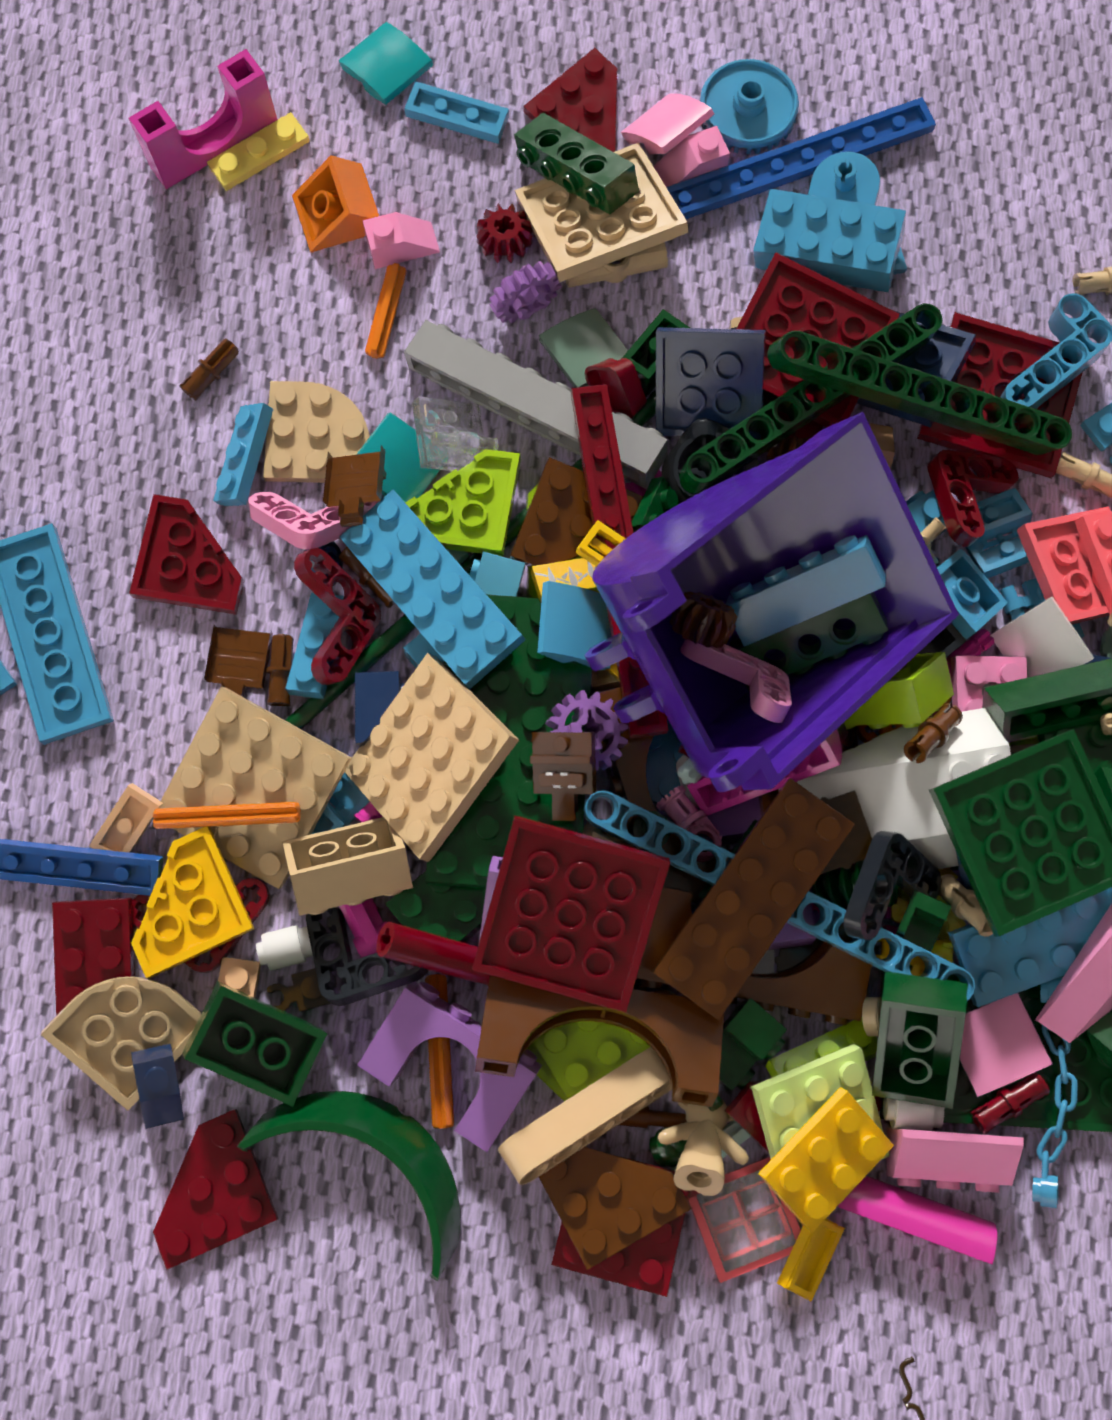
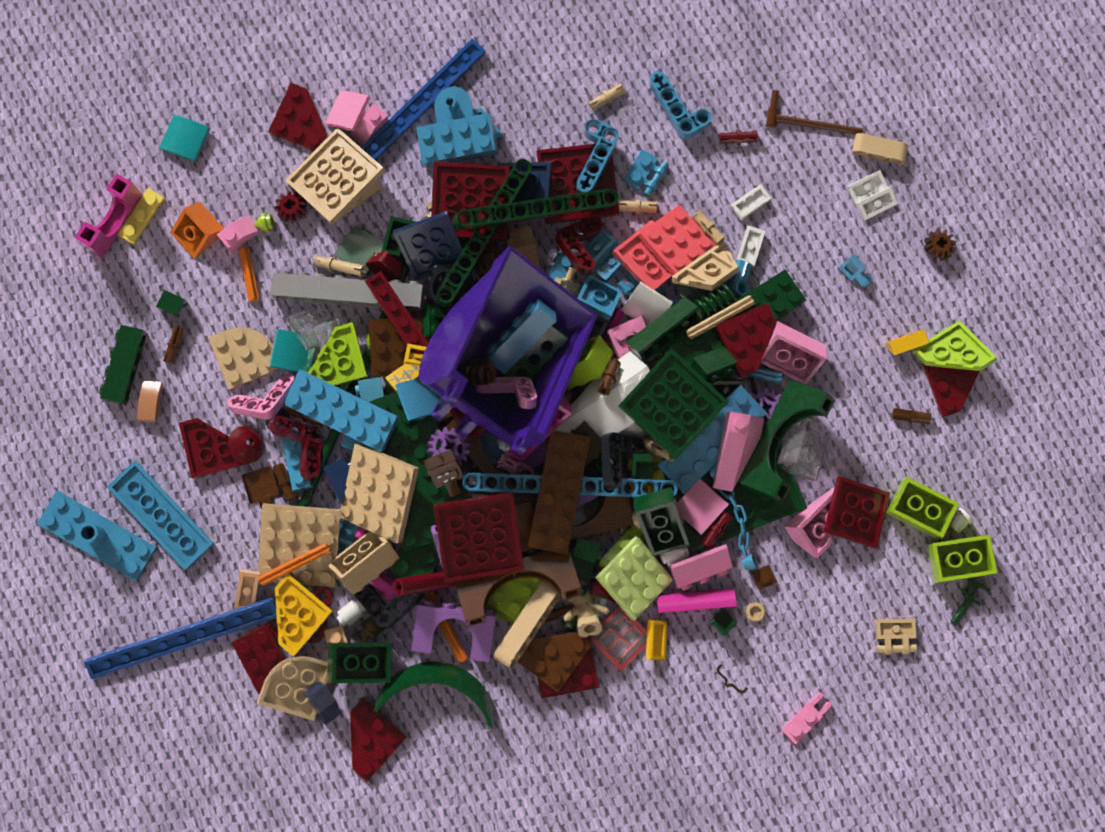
camera: 25 degrees left, 5 degrees up
(111, 364) = (123, 365): none -> dark green brick
(120, 443) = (149, 401): none -> nougat slope
(233, 585) = (240, 449): none -> dark red dish
(236, 299) = (170, 303): none -> dark green panel
(243, 454) = (213, 382): dark azure plate -> none
(352, 482) = (277, 374): reddish brown piece -> none
(451, 241) = (265, 222): none -> lime plate
(456, 112) = (235, 150): dark azure plate -> none
(525, 292) = (316, 236): medium lavender gear -> none
(531, 351) = (333, 264): none -> tan pin
(576, 163) = (311, 155): dark green brick -> none
(751, 104) = (386, 92): dark azure wheel -> none
(826, 1159) = (643, 594): yellow plate -> none
(950, 1282) = (723, 622): none -> dark green panel
(1017, 1288) = (755, 612): none -> tan tile
(1059, 1230) = (763, 577): none -> reddish brown plate

